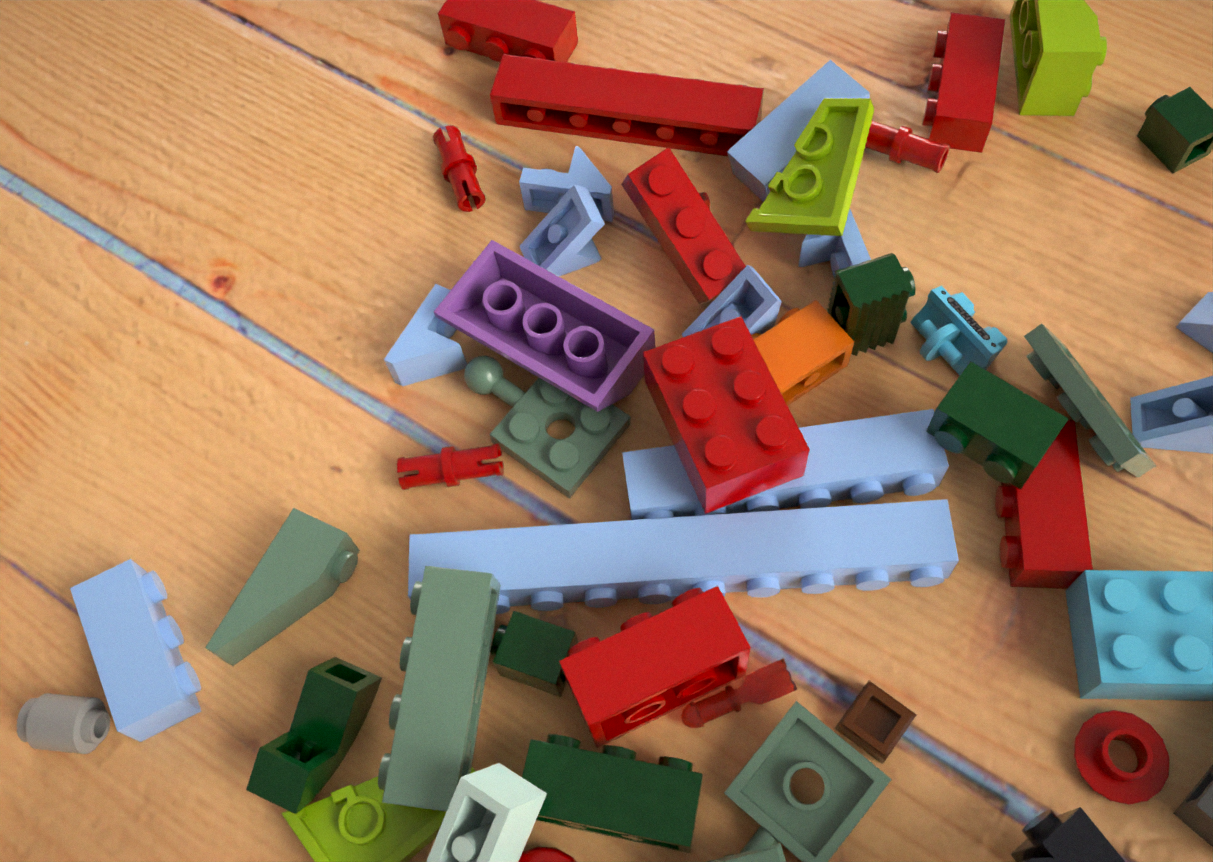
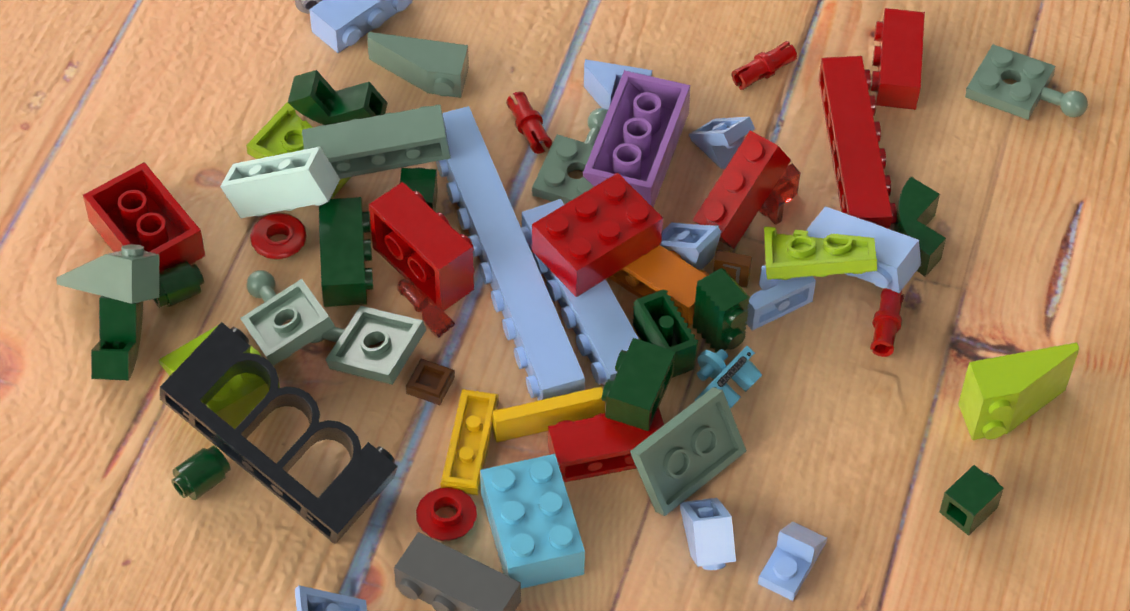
camera: 65 degrees right, 10 degrees down
(546, 187) = (778, 131): light blue slope -> none
(744, 64) = (914, 211): none -> dark green brick
(785, 275) = (735, 264): none -> reddish brown tile
(885, 381) = (662, 325): none -> dark green brick
(964, 81) = (945, 351): red brick -> none
(979, 569) = (538, 415): none -> yellow tile
(996, 691) = (469, 441): none -> yellow tile

